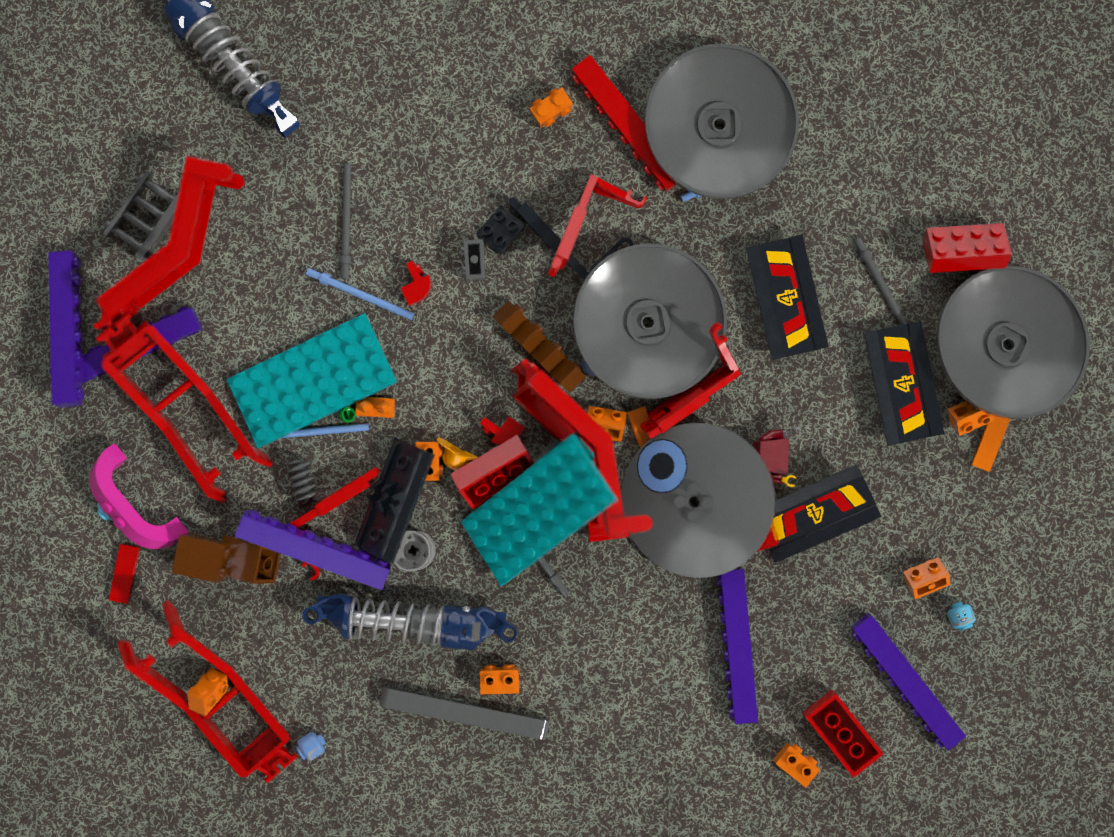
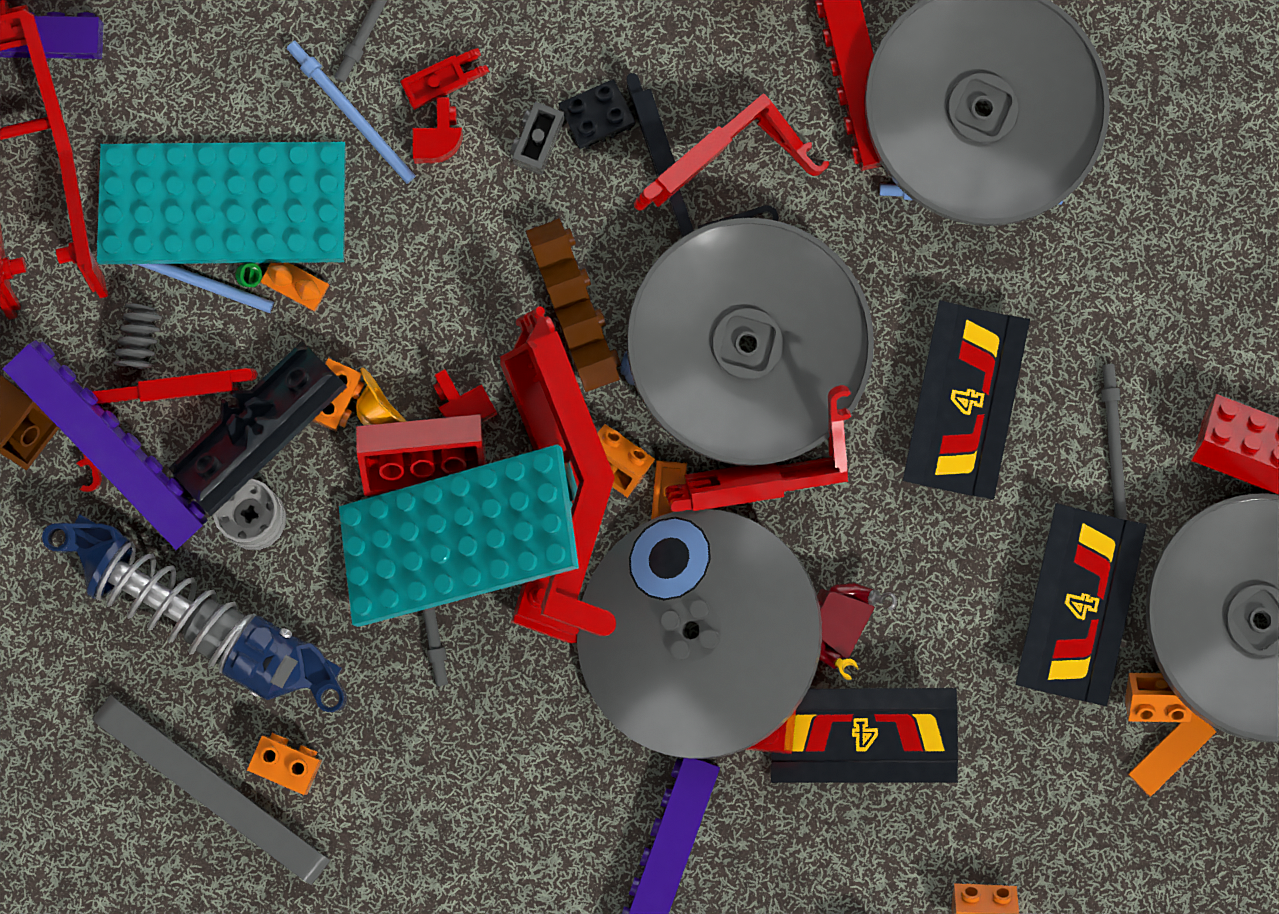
camera: 30 degrees right, 5 degrees down
(402, 251) = (441, 79): none -> red hinge

